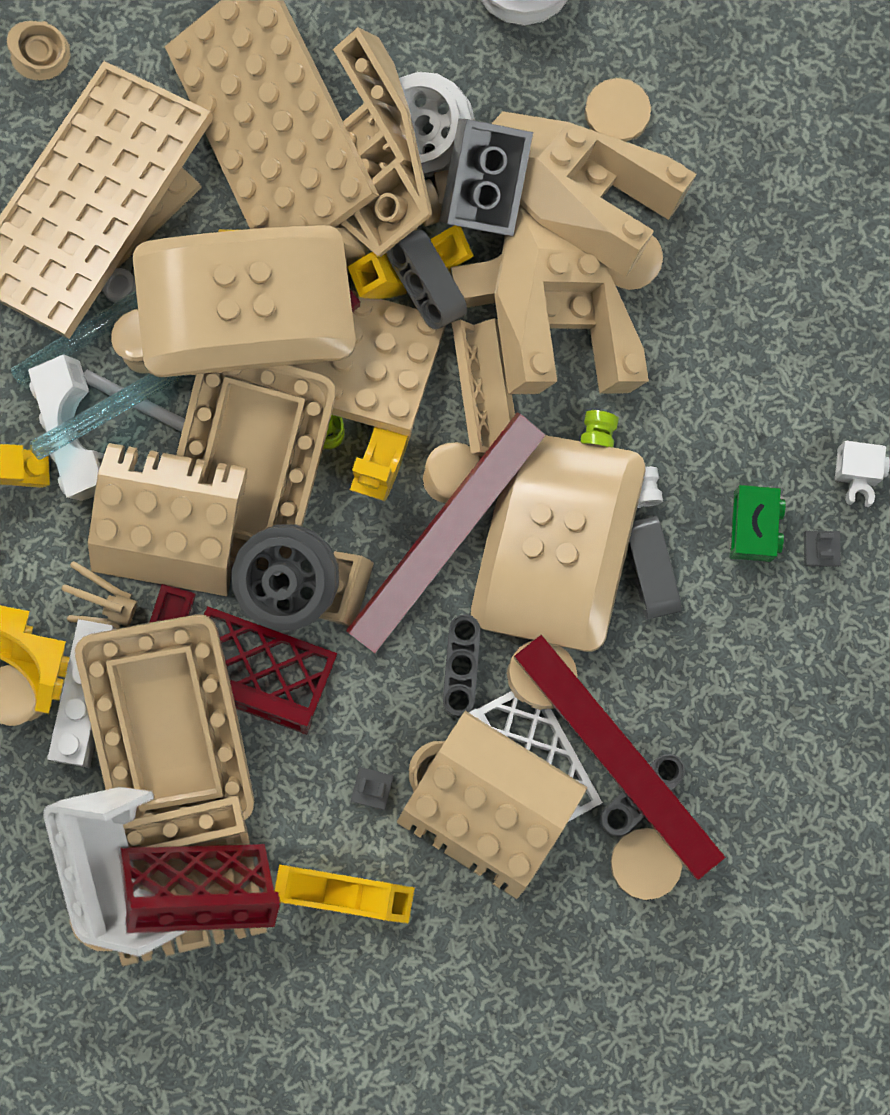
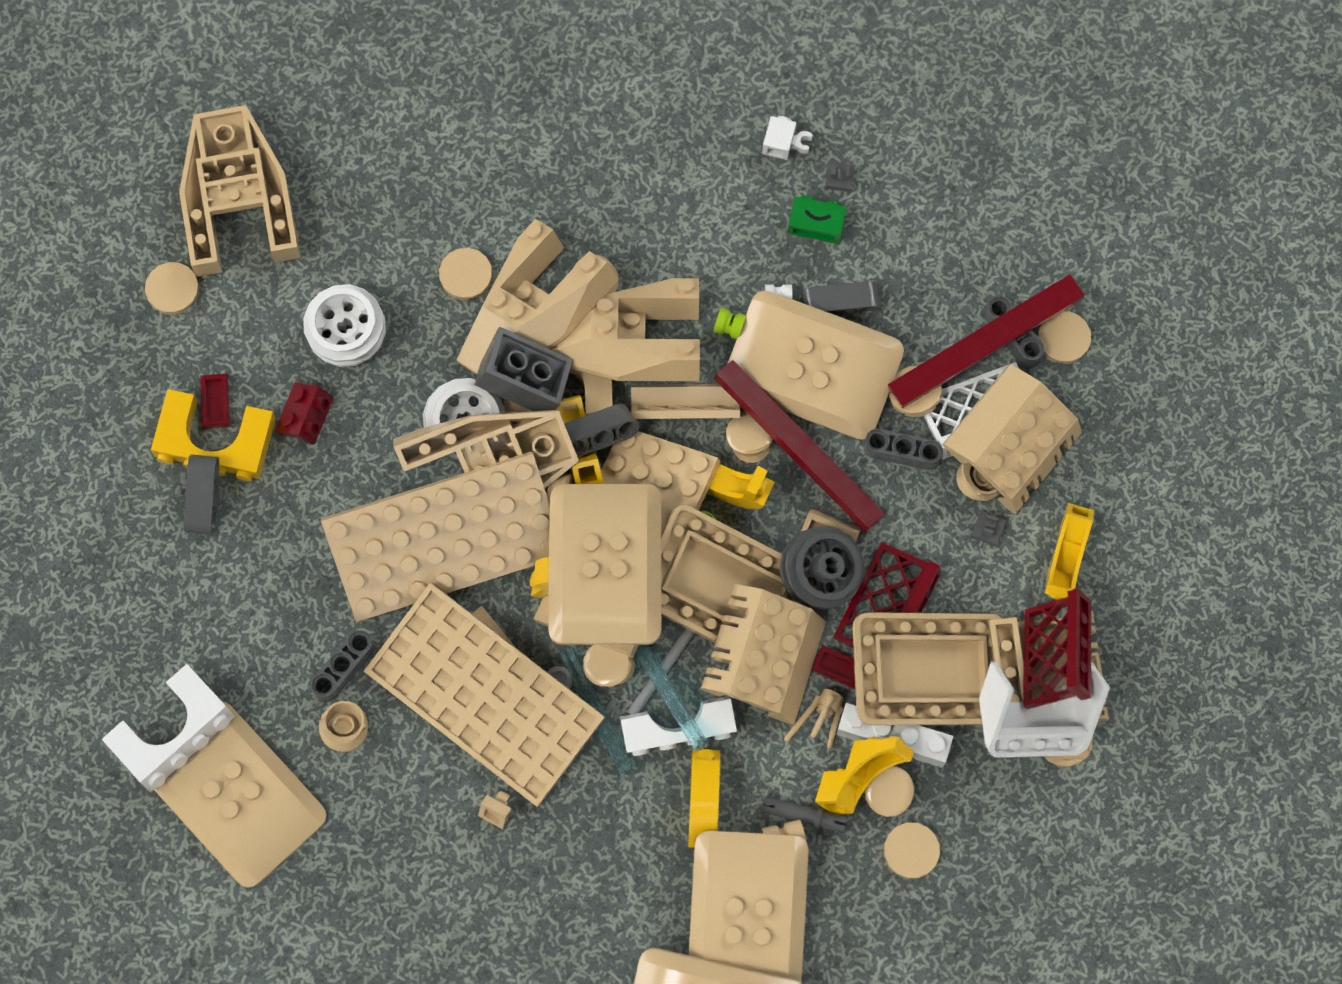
camera: 80 degrees left, 5 degrees down
(100, 25) = (344, 653): none -> dark grey beam

